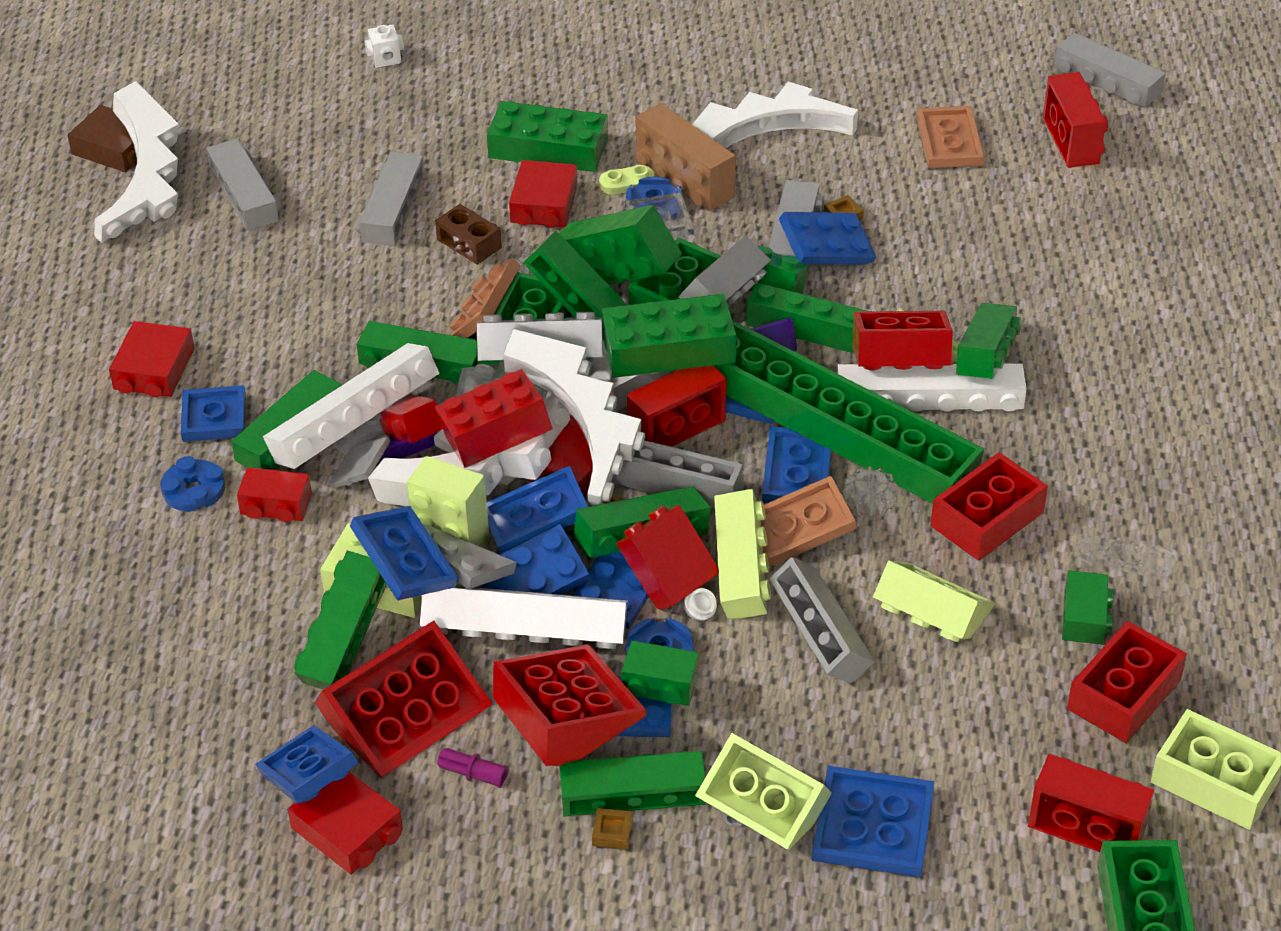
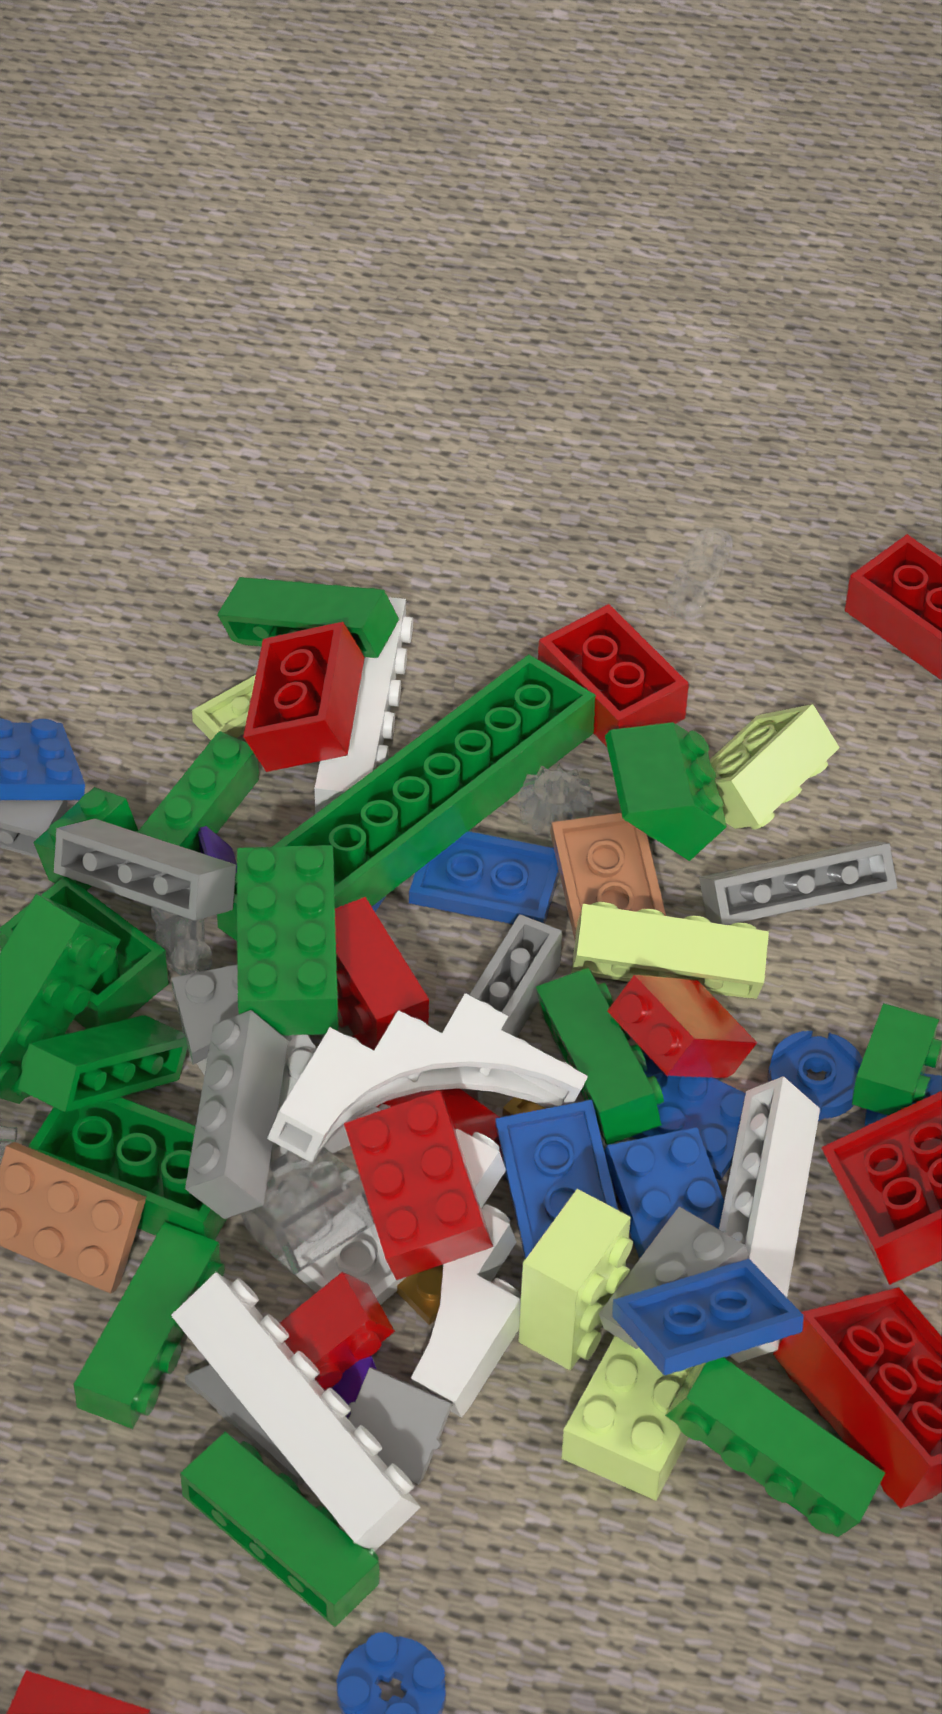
camera: 85 degrees left, 5 degrees up
(213, 413) = (225, 1652): blue plate -> none
(274, 494) = (450, 1553): red brick -> none
(700, 604) = (746, 1013): white plate -> none
(881, 529) = (667, 785): none -> green slope
(1086, 607) = (790, 624): green brick -> none

